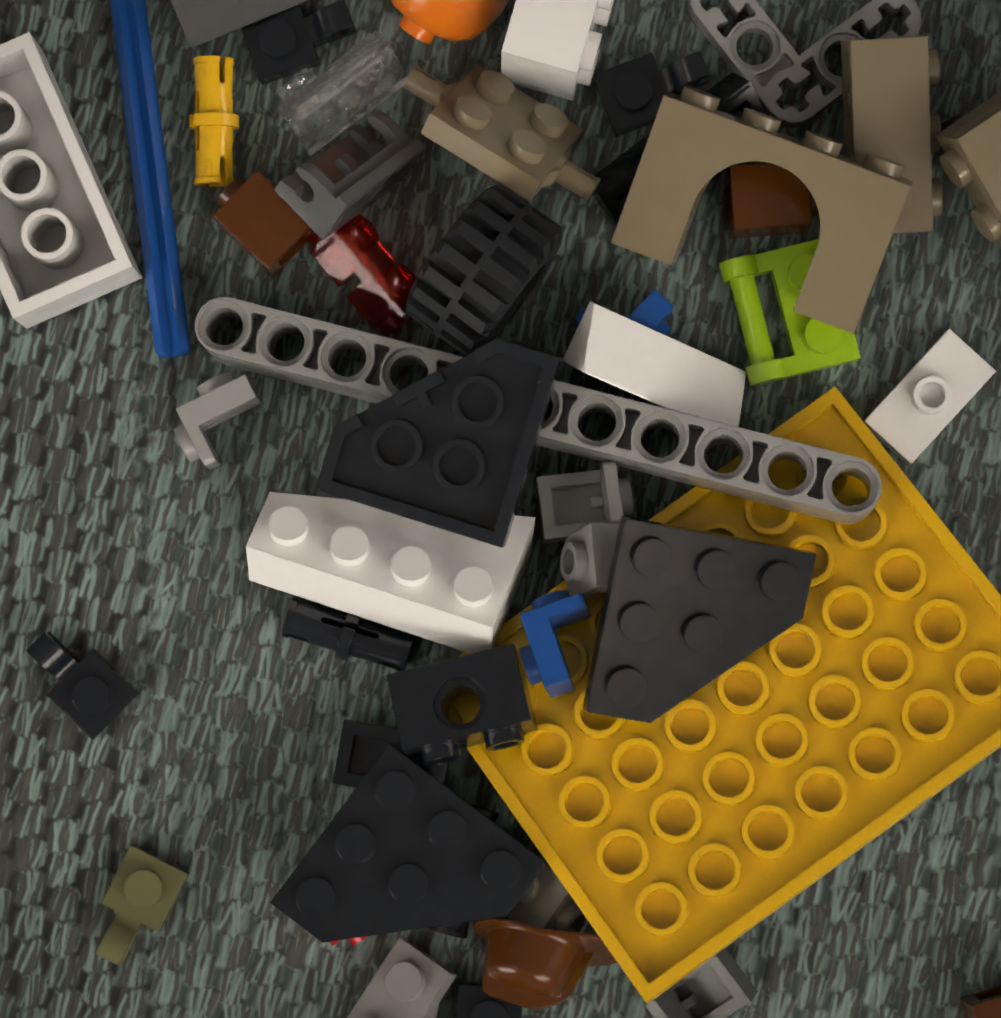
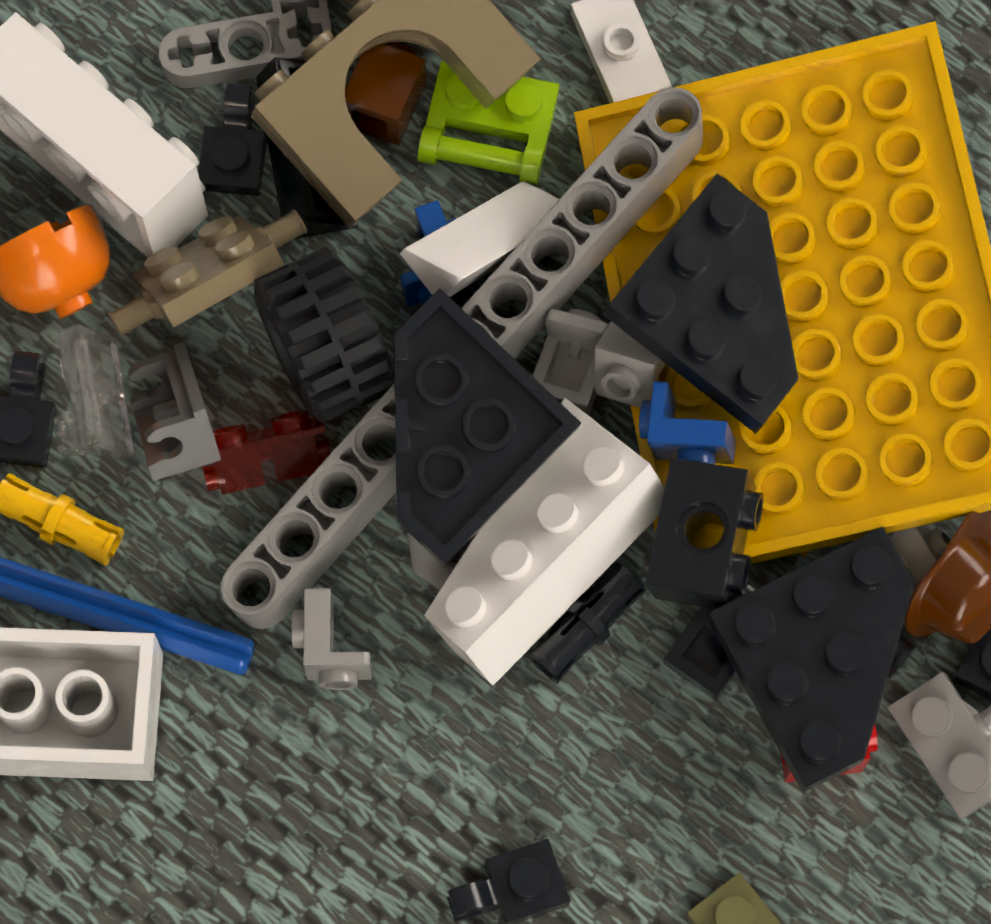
camera: 60 degrees left, 15 degrees down
(261, 222) = (172, 517): reddish brown brick -> none

